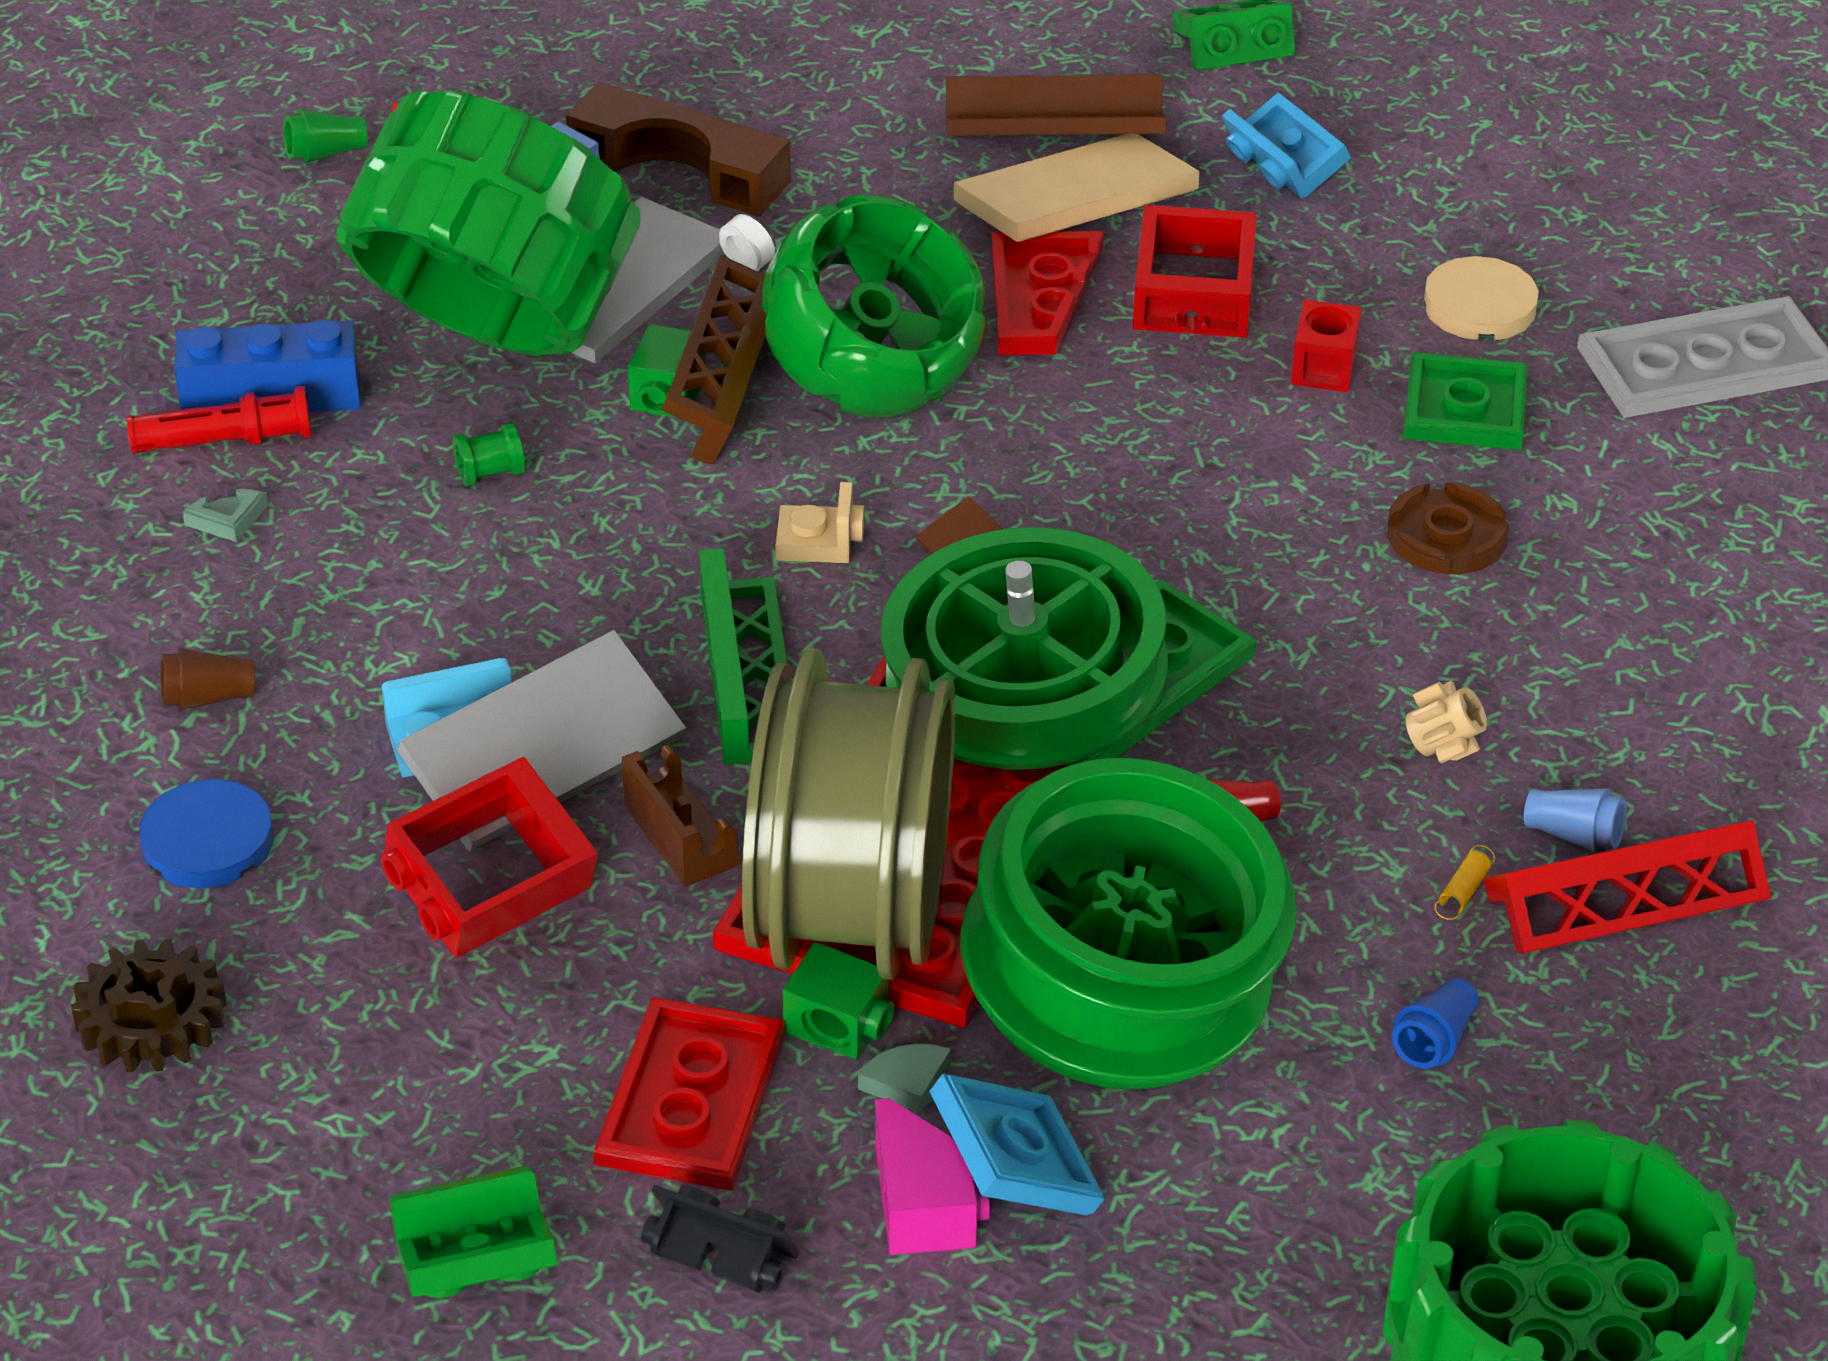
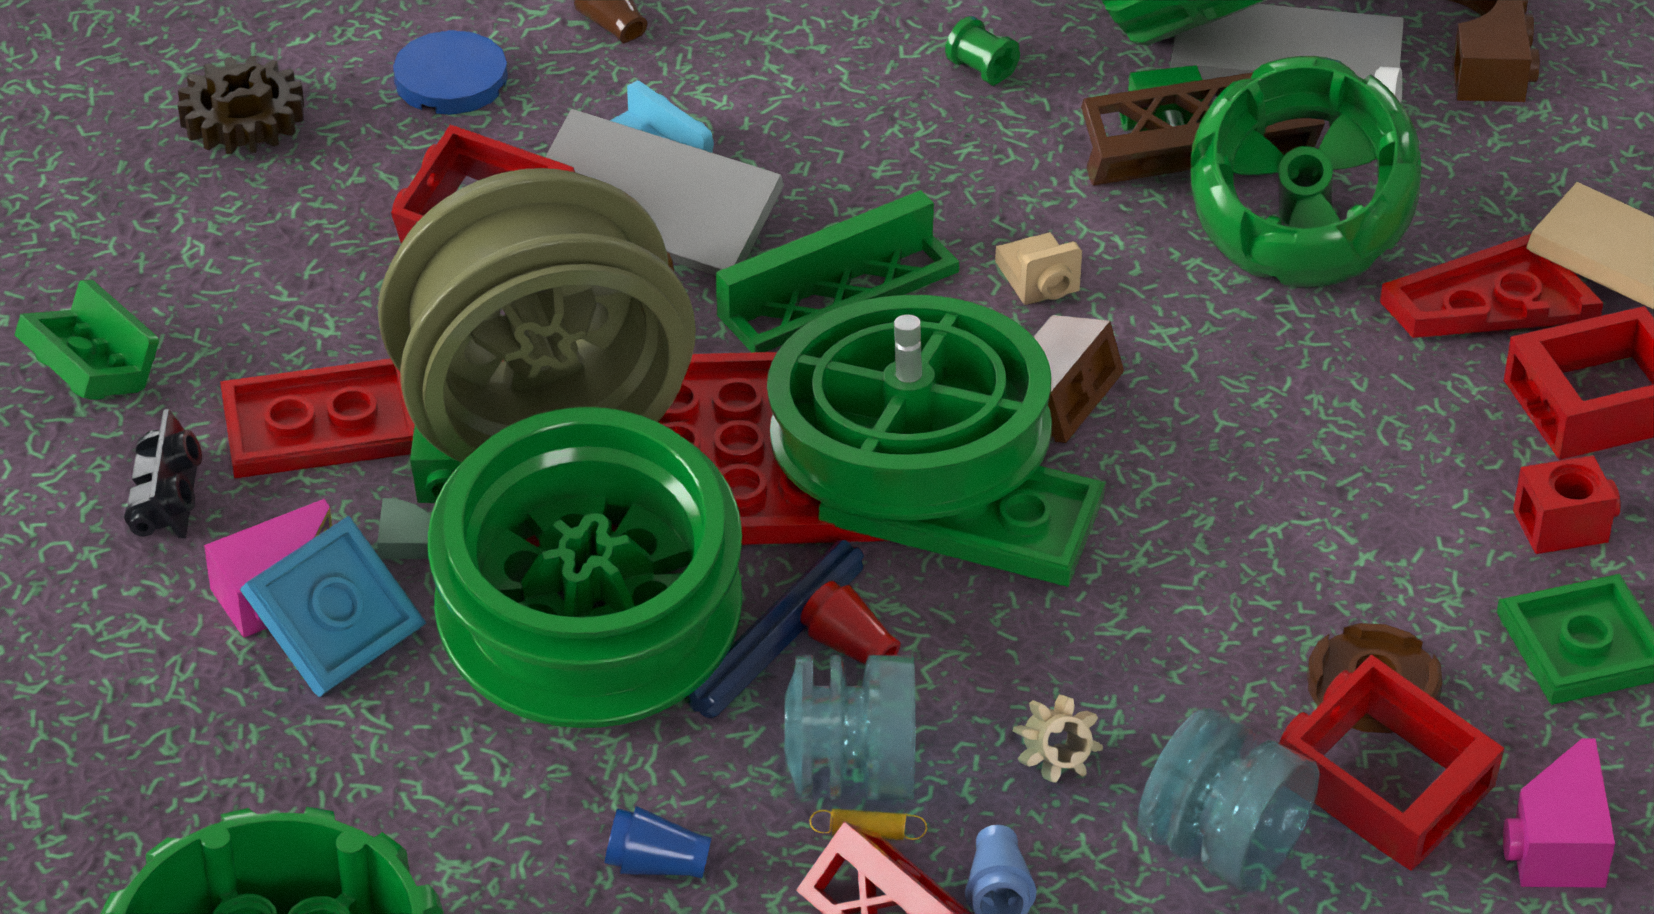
camera: 65 degrees right, 0 degrees up
(1394, 828) = (853, 727): none -> clear light blue wheel
(1593, 638) = (1228, 799): none -> clear light blue wheel
(1620, 516) = (1464, 751): none -> red window
(1673, 480) = (1563, 824): none -> dark pink slope

